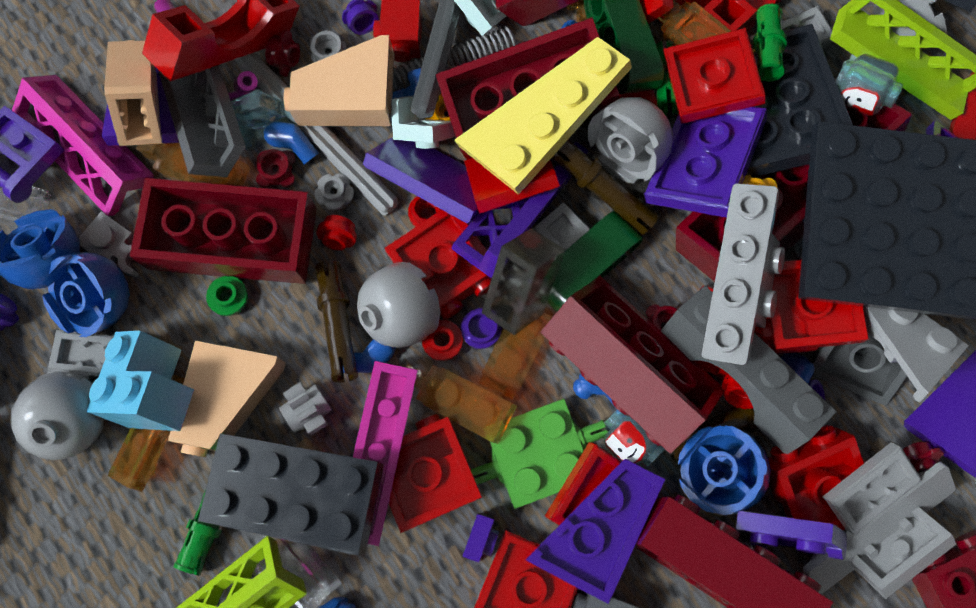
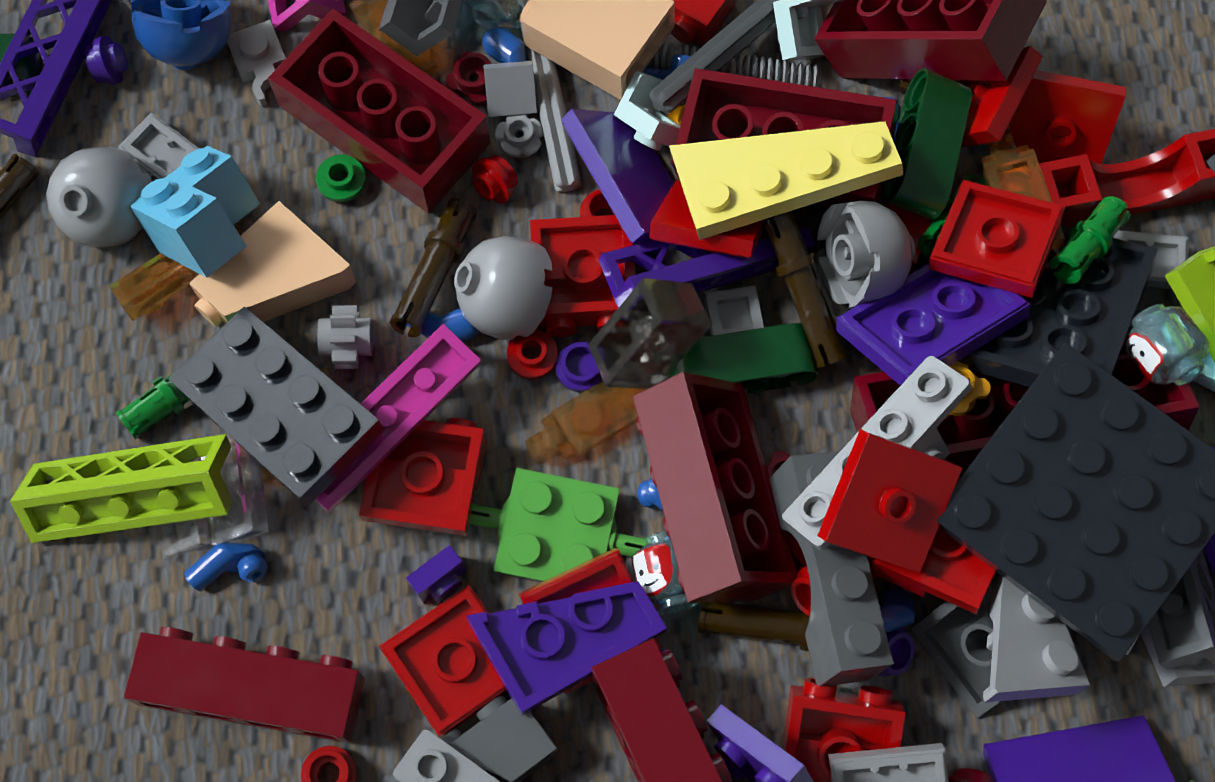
camera: 30 degrees right, 5 degrees down
(89, 296) = (203, 97): blue cylinder -> none
(308, 162) = (510, 88): none -> light grey tile
(464, 402) = (511, 427): clear orange hinge -> none
(724, 470) = (739, 661): blue cylinder -> none
(773, 304) = (889, 501): none -> red plate

